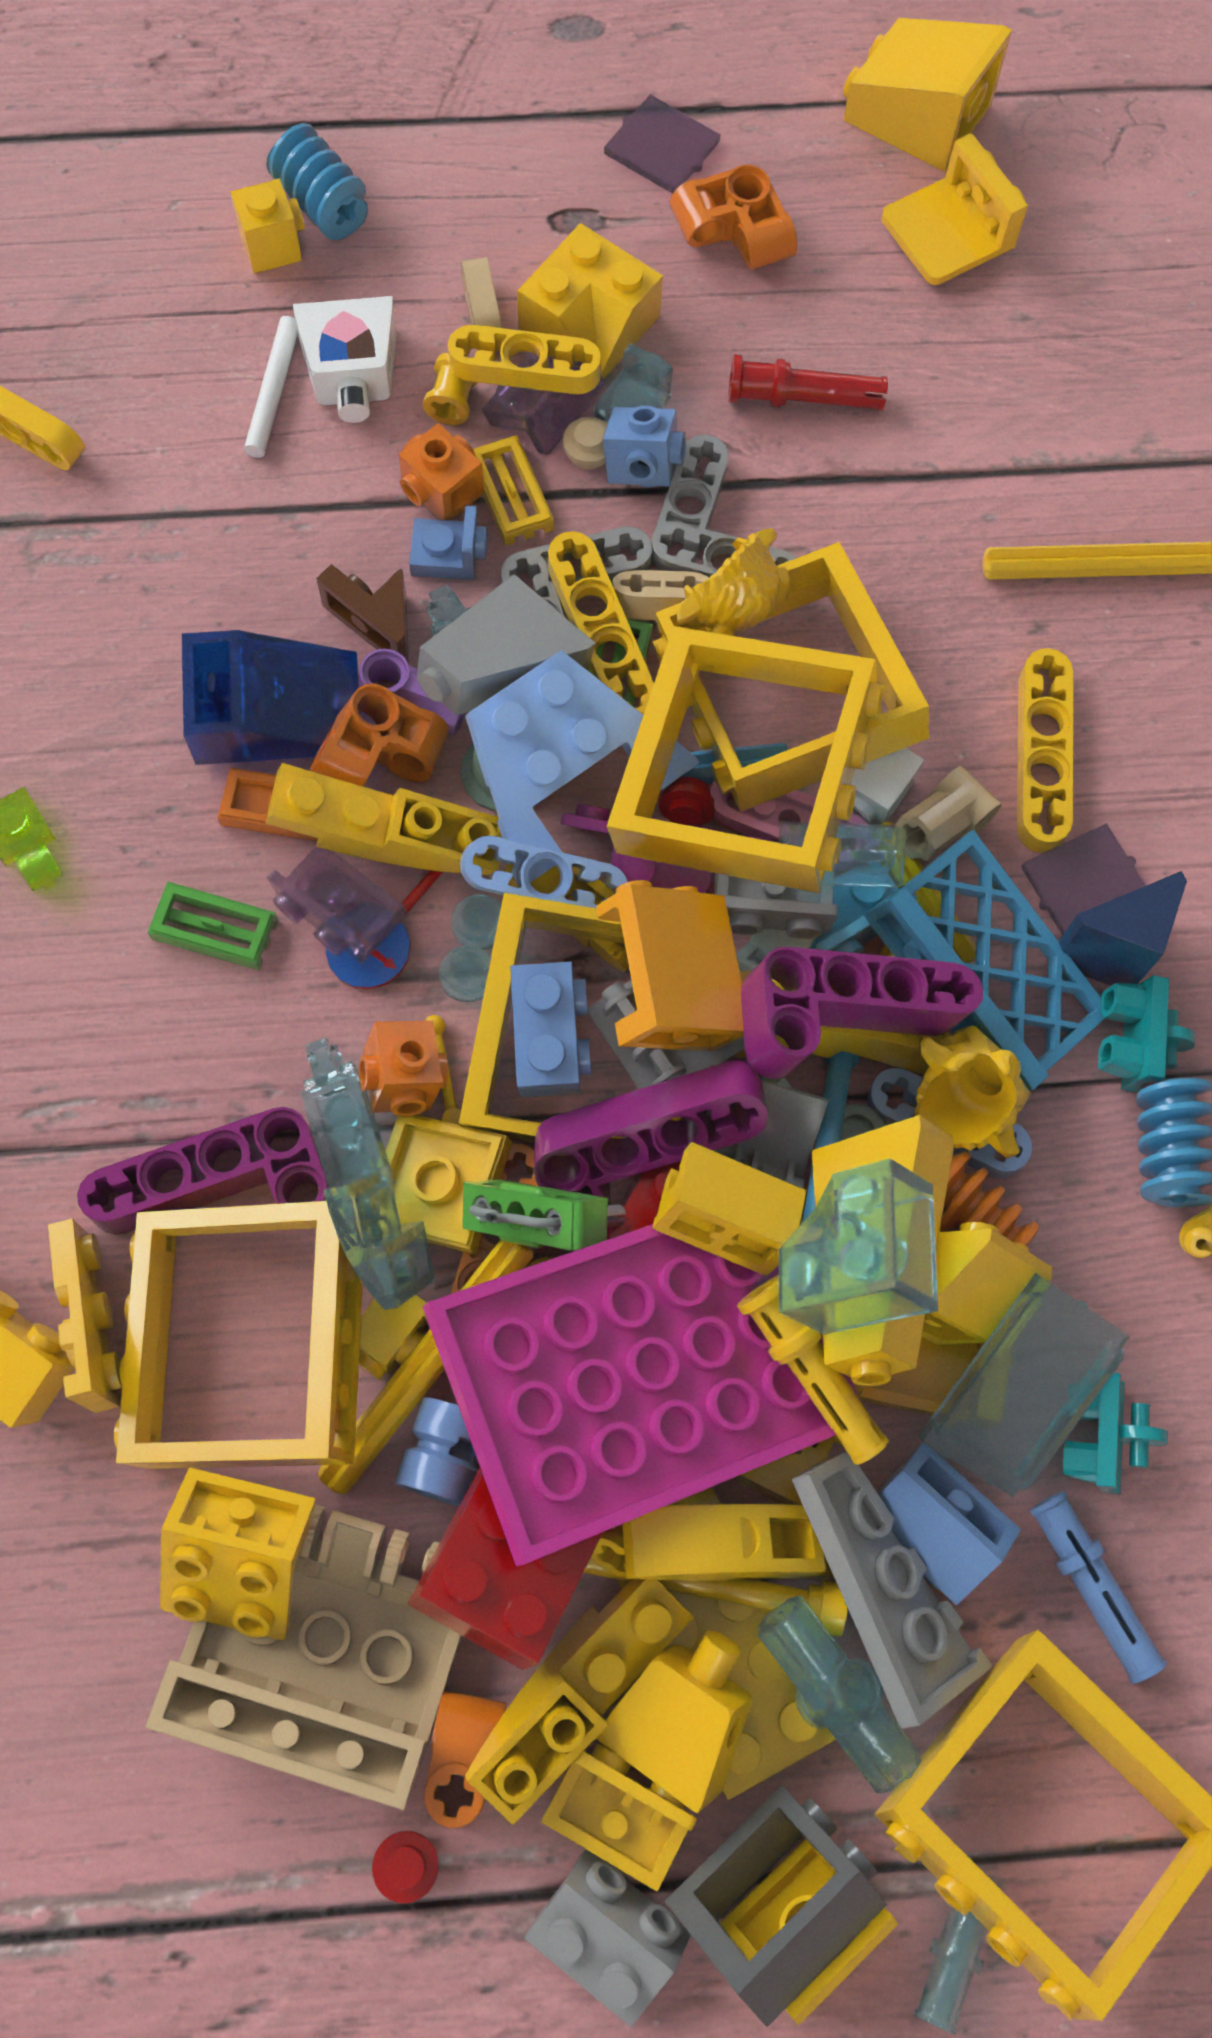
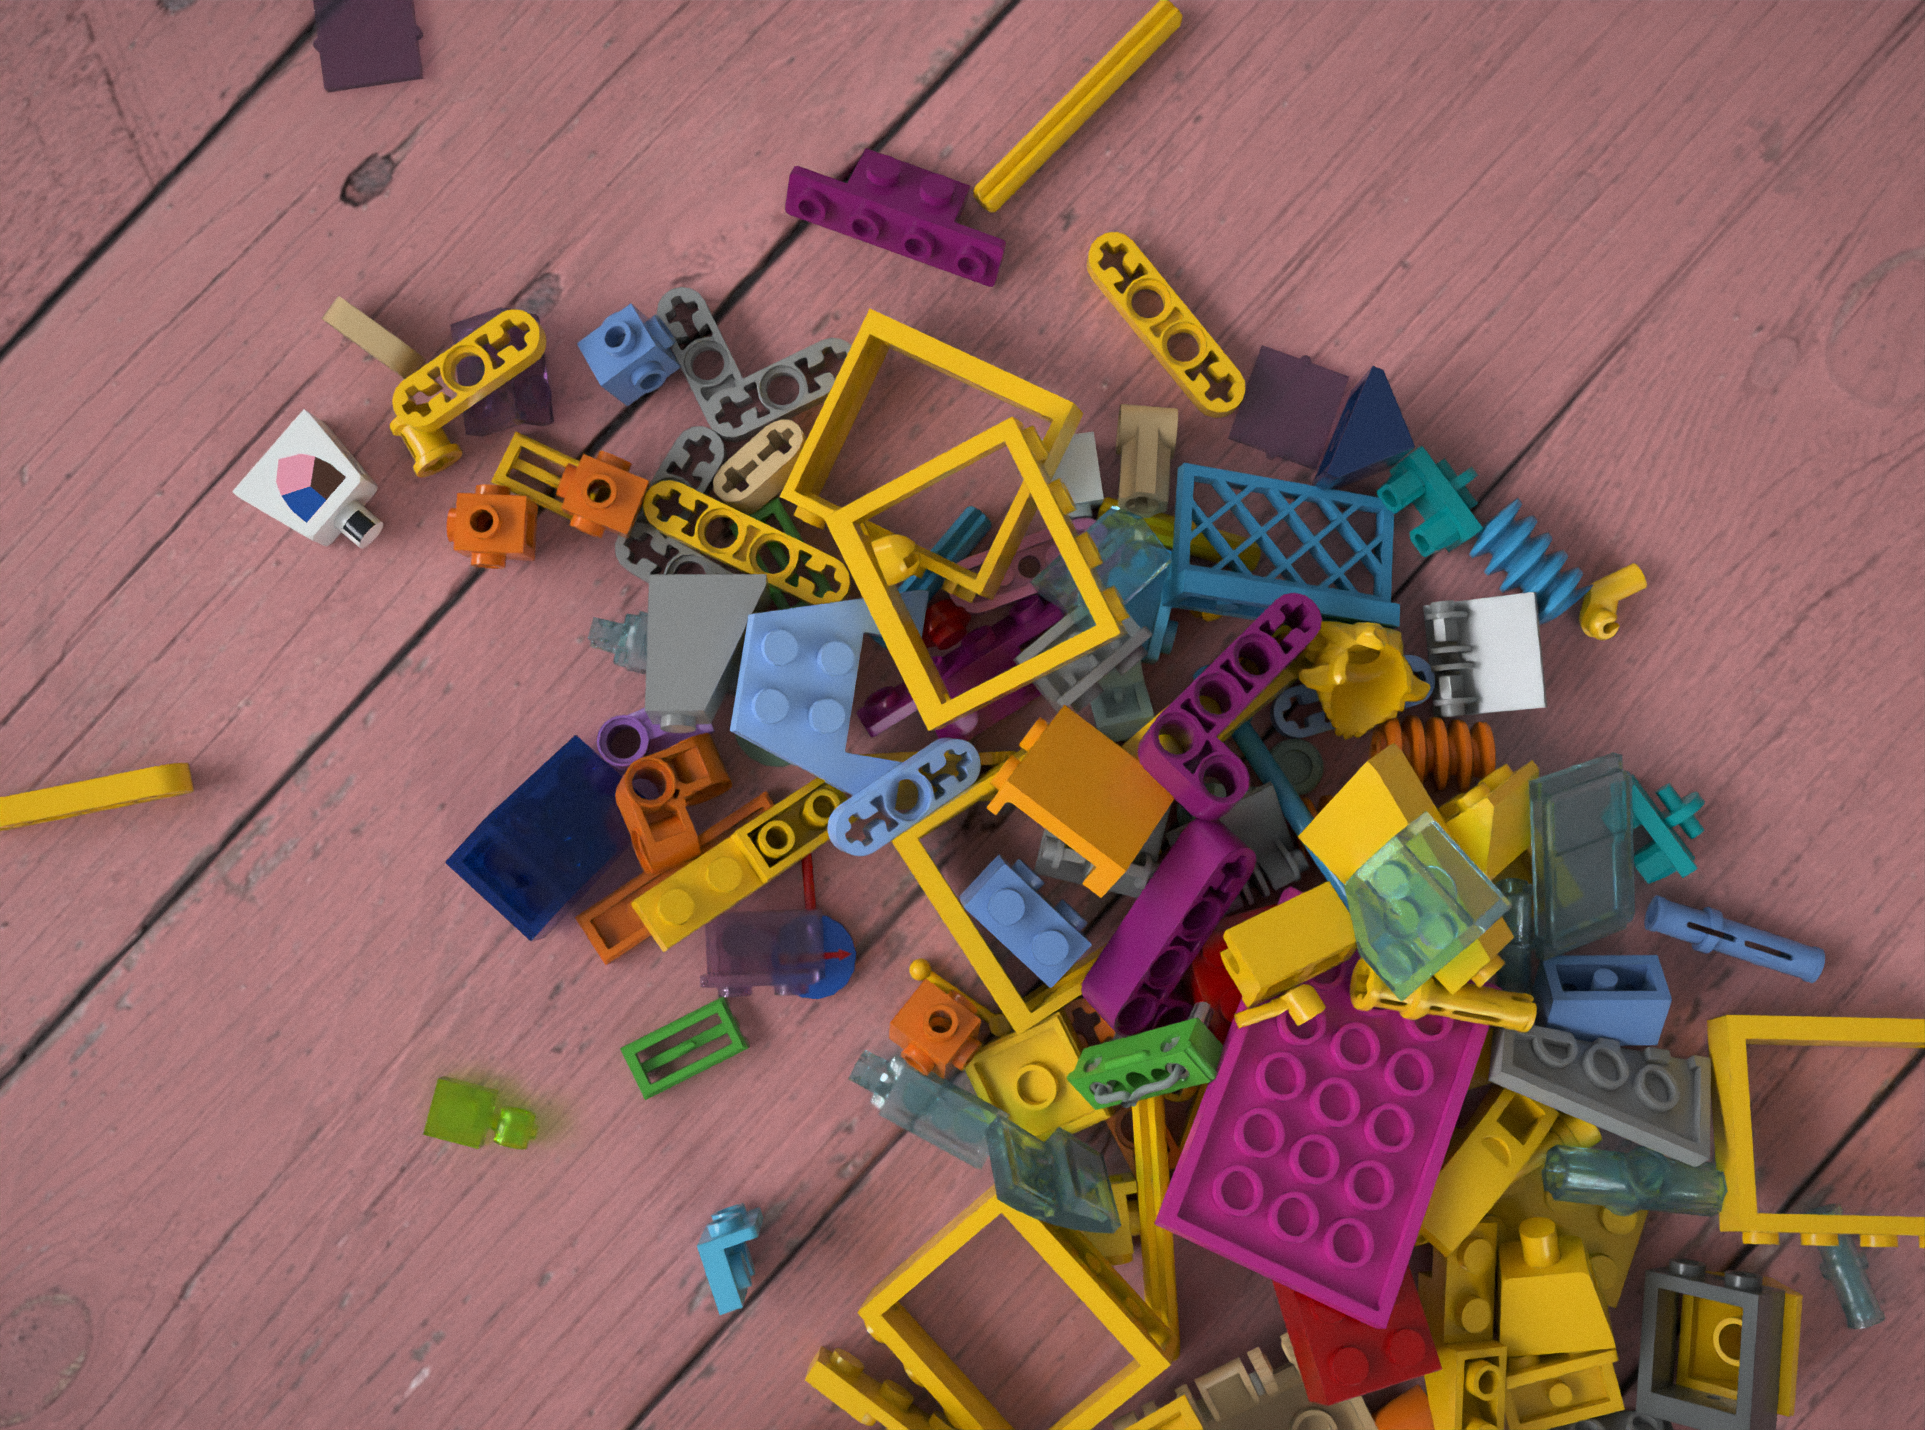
camera: 35 degrees left, 15 degrees up
(81, 1081) = (727, 1254): none -> medium azure bracket
(200, 1181) = (874, 1239): magenta beam -> none
(268, 225) = (130, 431): yellow brick -> none
(271, 388) = (278, 569): white bar -> none
(318, 181) = (127, 354): dark azure piece -> none
(374, 617) = (570, 691): reddish brown slope -> none
(444, 1457) = (1226, 1286): medium blue wheel -> none
(448, 547) = (556, 579): medium blue bracket -> none
(465, 973) = (906, 910): clear light blue plate -> none
(476, 921) = (879, 869): clear light blue plate -> none
(533, 507) = (618, 511): none -> orange brick
(585, 442) = (575, 384): tan plate -> none
(592, 294) = (460, 256): yellow slope -> none
(642, 381) = (571, 302): clear light blue bracket -> none
(694, 685) = (896, 557): none -> yellow hinge
(698, 1254) = (1300, 1002): none -> yellow hand
(737, 208) = (476, 74): orange piece -> none
(740, 590) = (845, 435): yellow hair -> none
(782, 383) = (681, 186): red pin -> none
(916, 1405) = (1516, 972): none -> clear light blue pin
(918, 520) = (899, 211): none -> magenta bracket
(1082, 1175) = (1485, 655): none -> hinge

